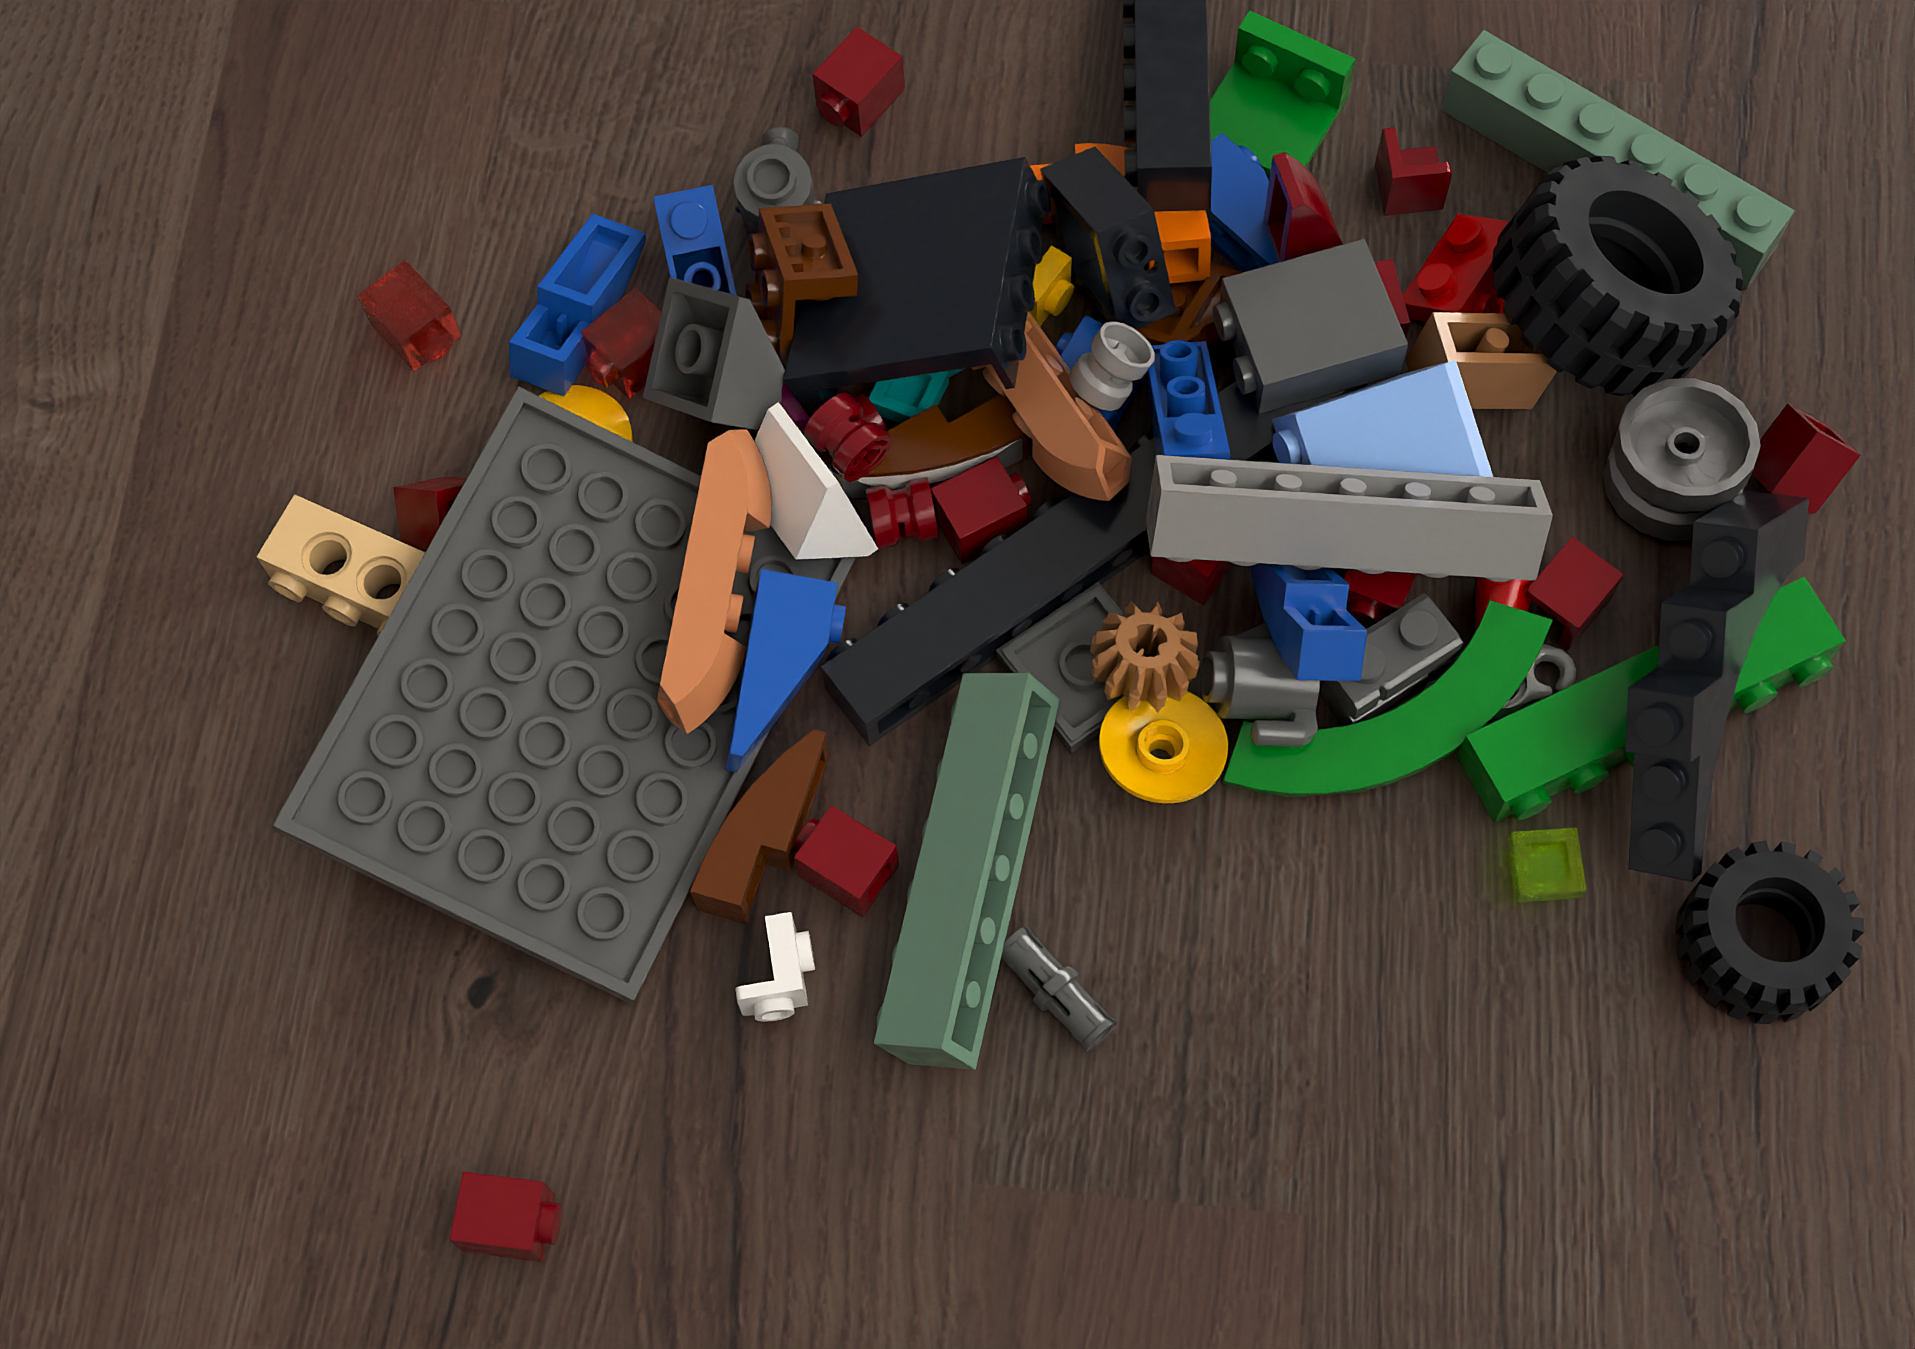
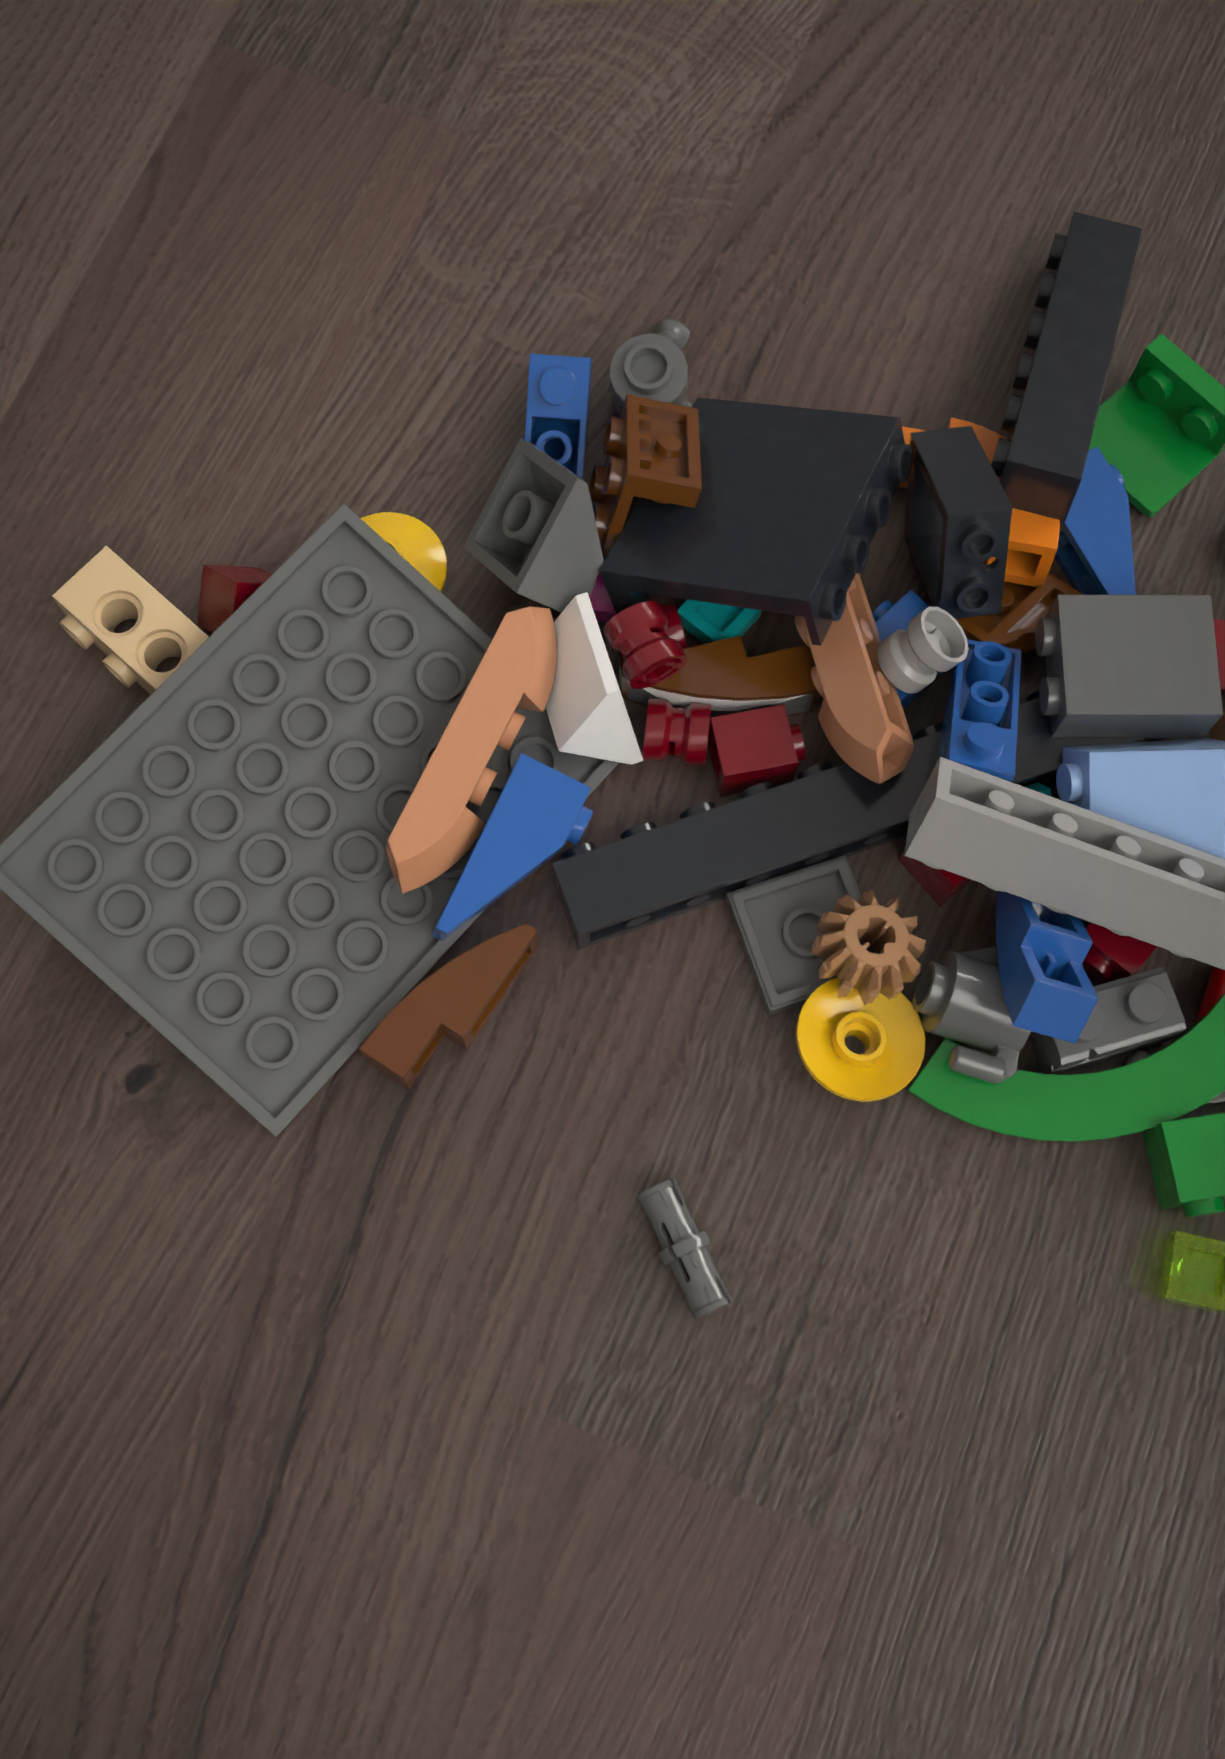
camera: 10 degrees right, 5 degrees up
(410, 316) = (270, 403): clear red brick -> none
(505, 1217) = (88, 1314): dark red brick -> none
(569, 298) = (429, 437): blue slope -> none
(623, 343) = (461, 486): clear red brick -> none
(790, 957) = (437, 1139): white bracket -> none
(845, 859) = (519, 1058): dark red brick -> none
(858, 82) = (761, 297): dark red brick -> none
(967, 871) = (632, 1108): sand green brick -> none
(1052, 284) = (888, 549): yellow plate -> none
(1297, 211) = (1150, 549): dark red slope -> none

